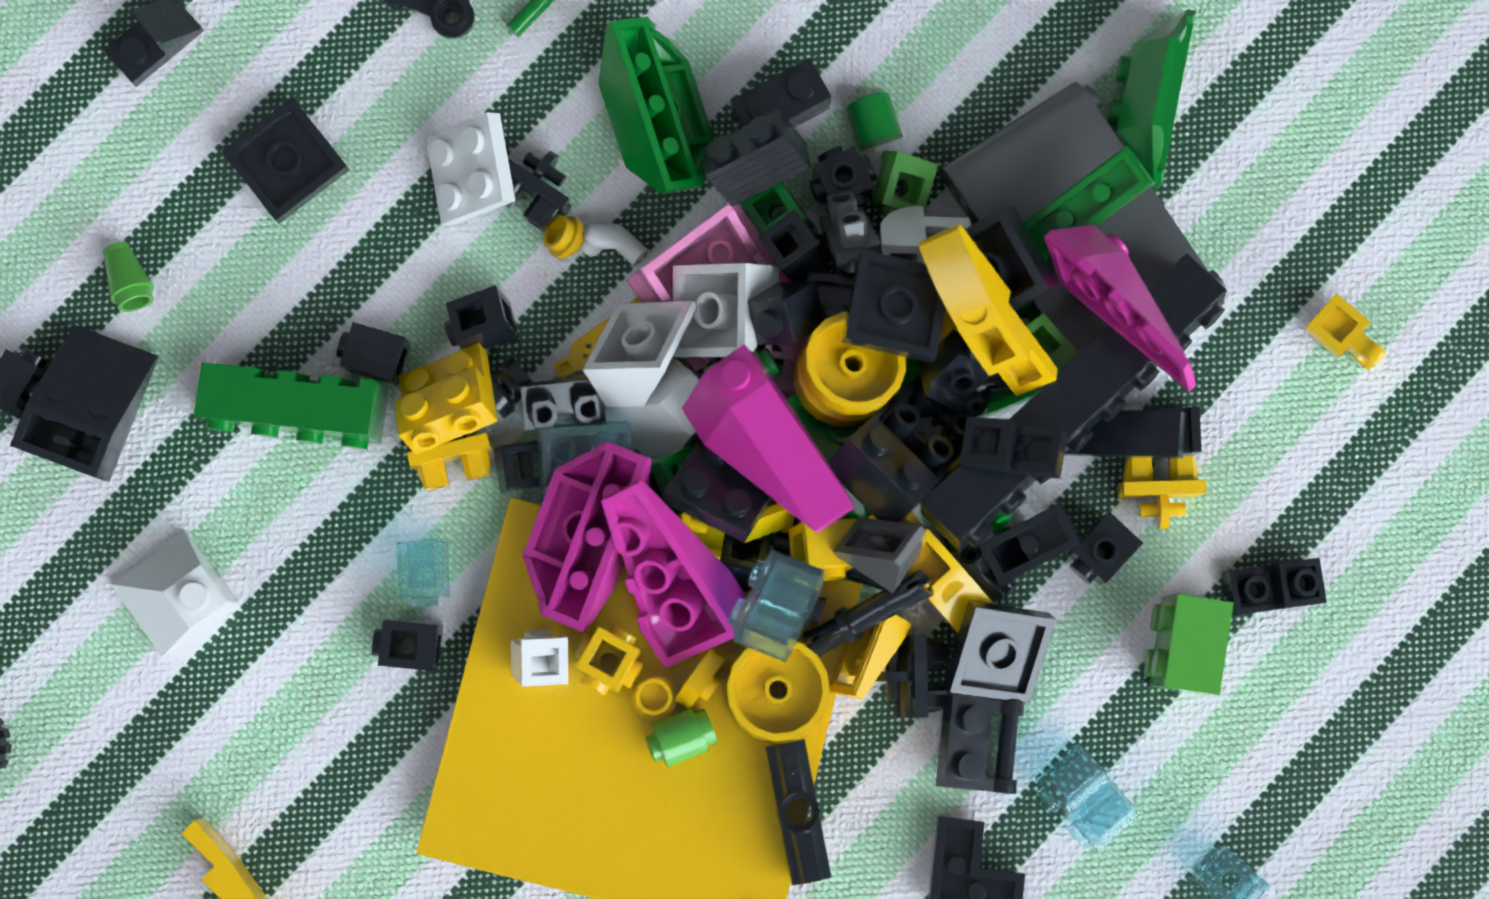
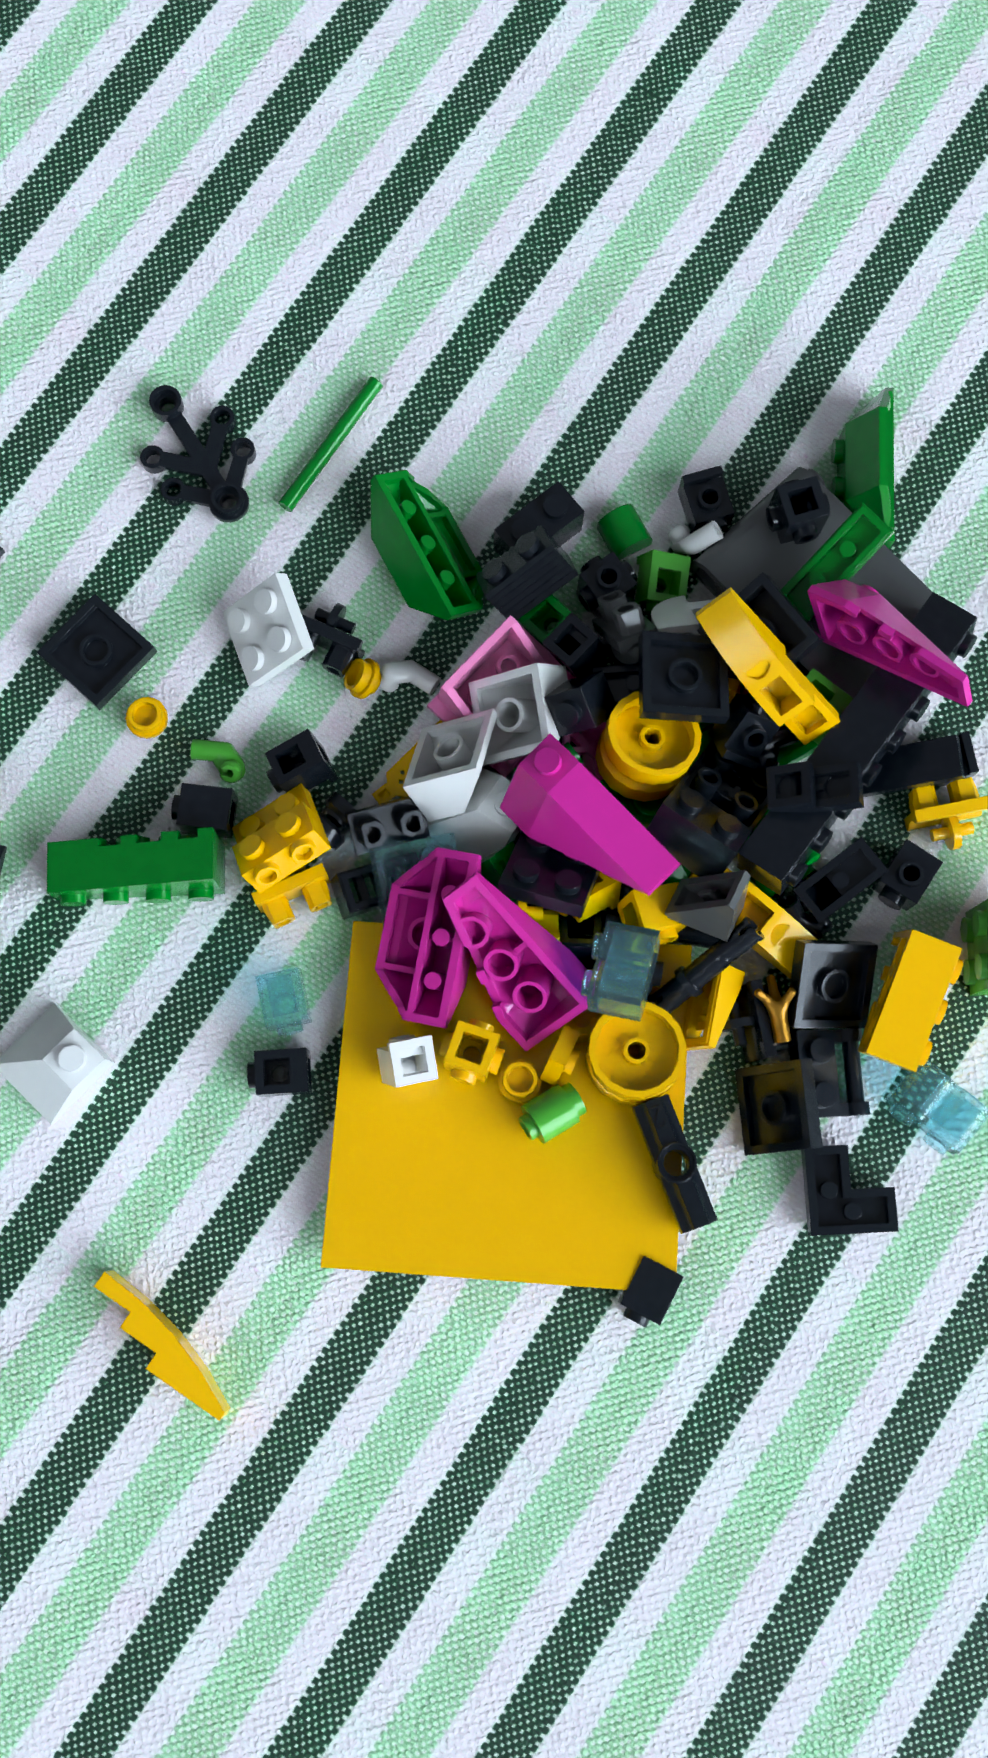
camera: 10 degrees left, 5 degrees down
(327, 240) = (146, 717): none -> yellow plate
(402, 297) = (222, 755): none -> bright green arm
(918, 772) = (778, 1107): none -> black plate
(936, 668) = (777, 1009): none -> pearl gold bar
(949, 146) = (694, 543): none -> white arm
(959, 119) = (702, 486): none -> black brick
(1070, 126) = (798, 510): none -> black brick
(1077, 685) = (911, 999): none -> yellow wedge

